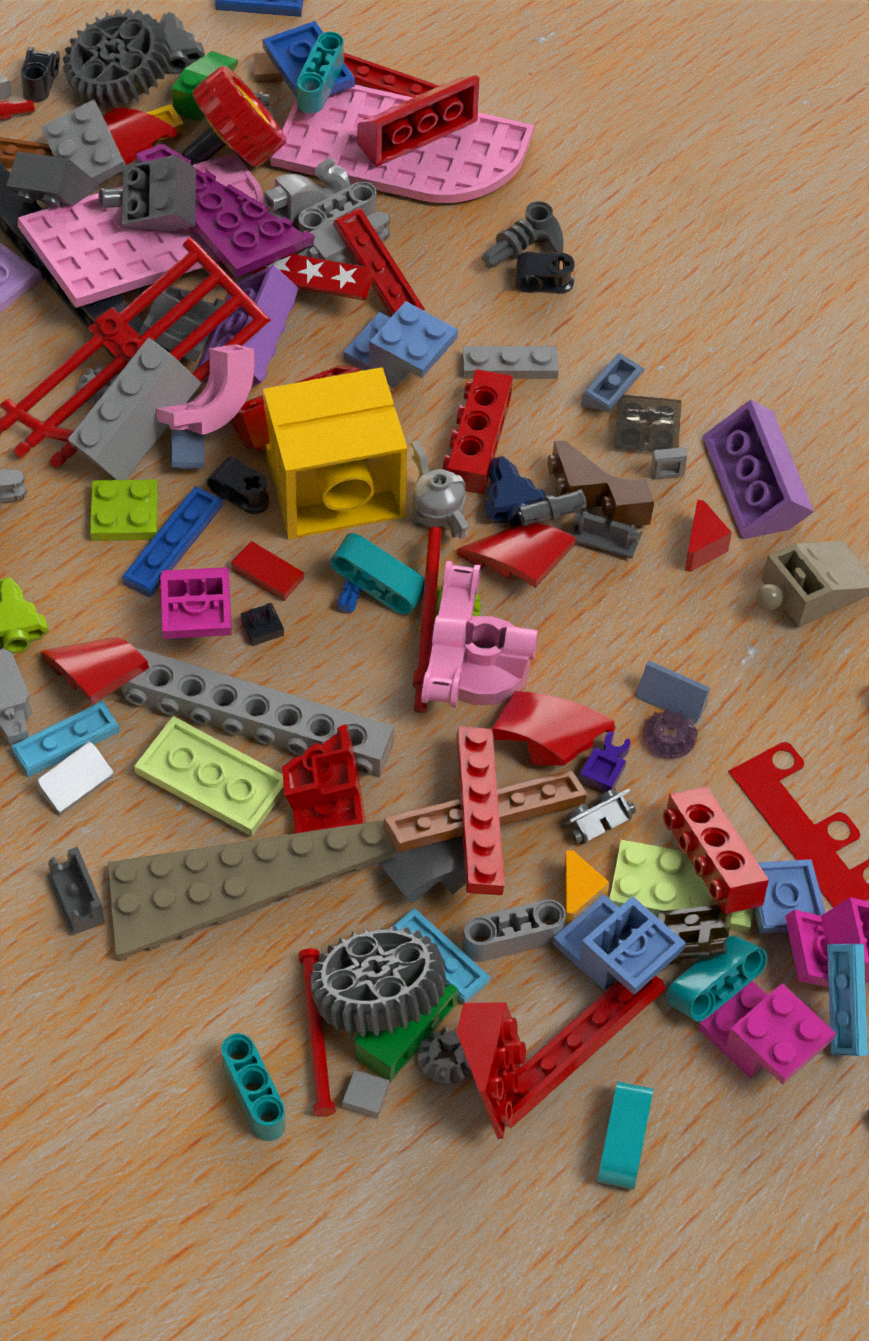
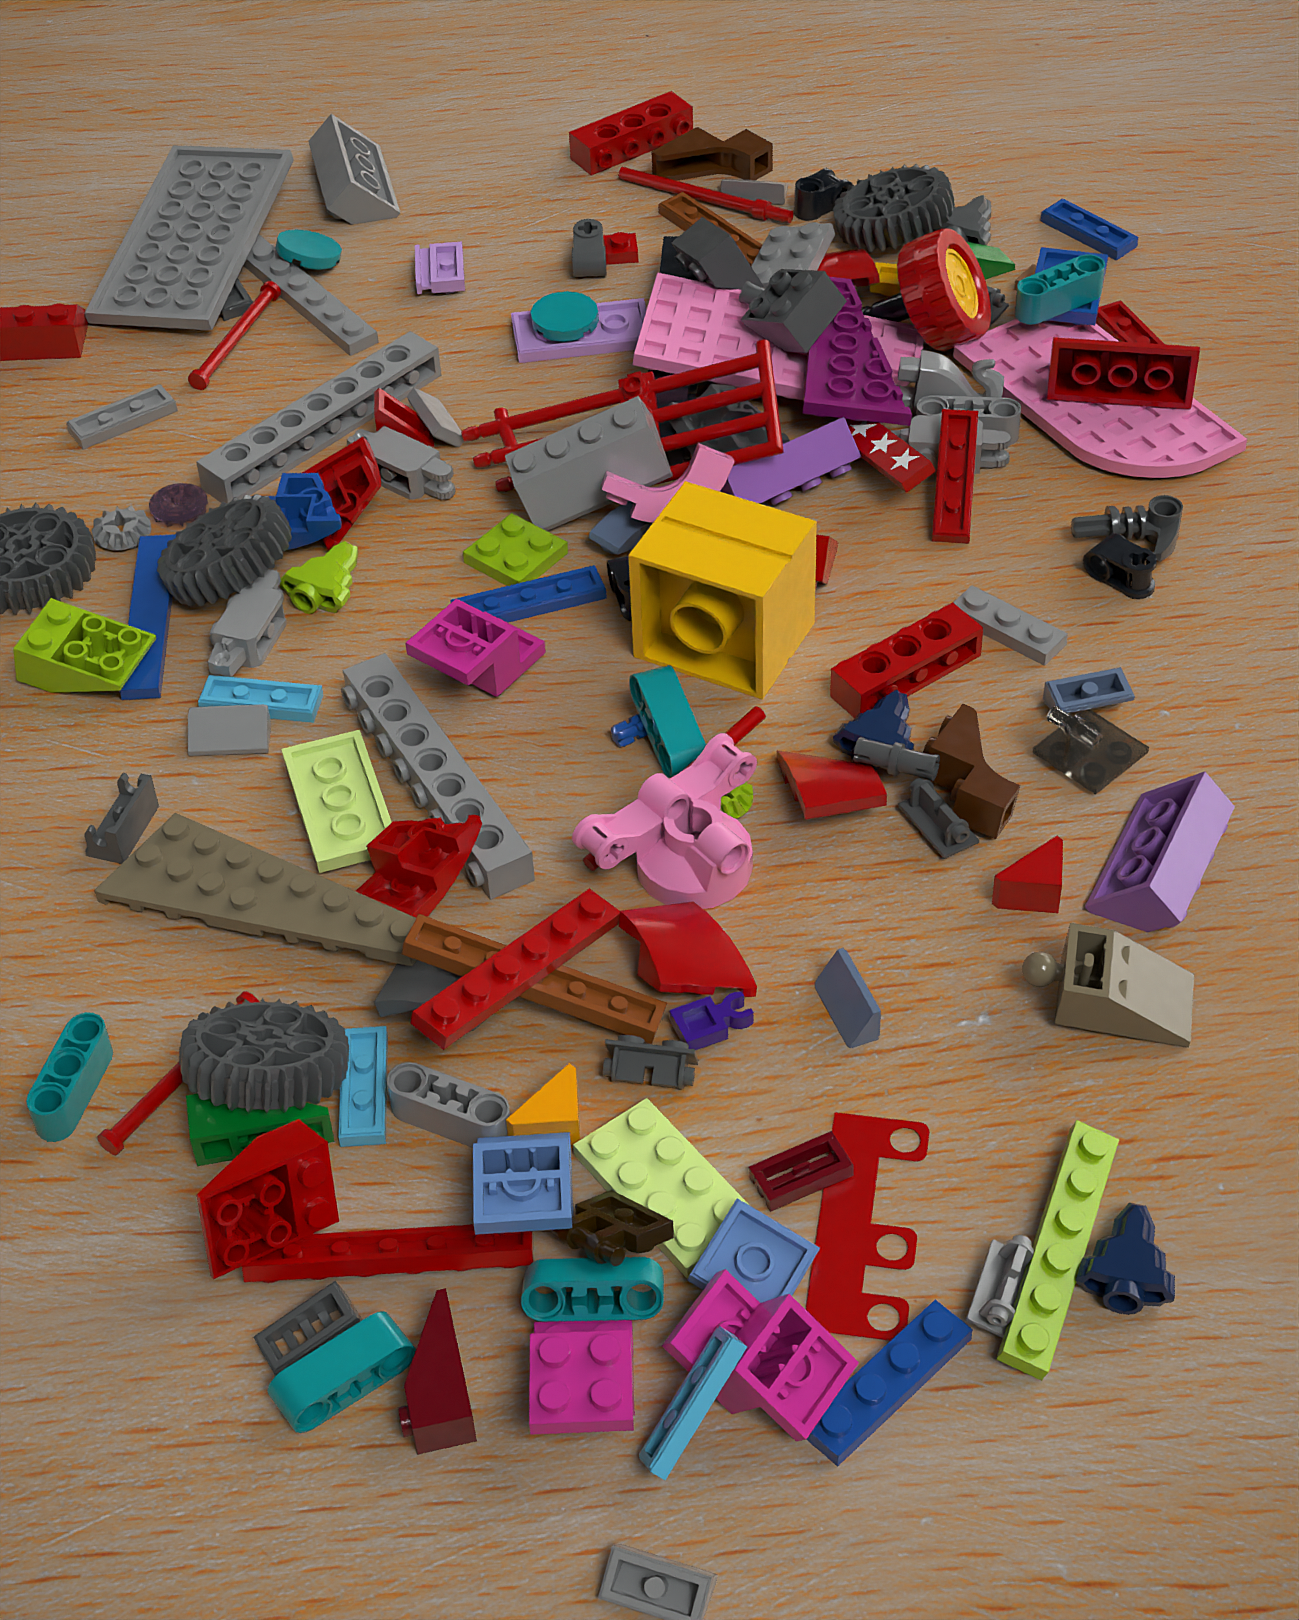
camera: 45 degrees right, 10 degrees down
(97, 665) = (338, 651): red slope -> none
(262, 624) = (528, 707): black tile -> none
(267, 570) = (582, 668): red tile -> none
(365, 1094) = (161, 1157): light grey tile -> none
(401, 344) = (905, 547): medium blue bracket -> none
(438, 496) = (799, 691): light grey helmet -> none
(587, 1099) = (302, 1317): none -> dark grey slope
(667, 745) = (822, 1048): clear purple gear -> none
(668, 463) = (1071, 793): light grey tile -> none
(691, 1101) = (436, 1386): none -> dark red slope
(716, 850) = (713, 1163): red brick -> none
(761, 796) = (805, 1176): none -> dark red tile

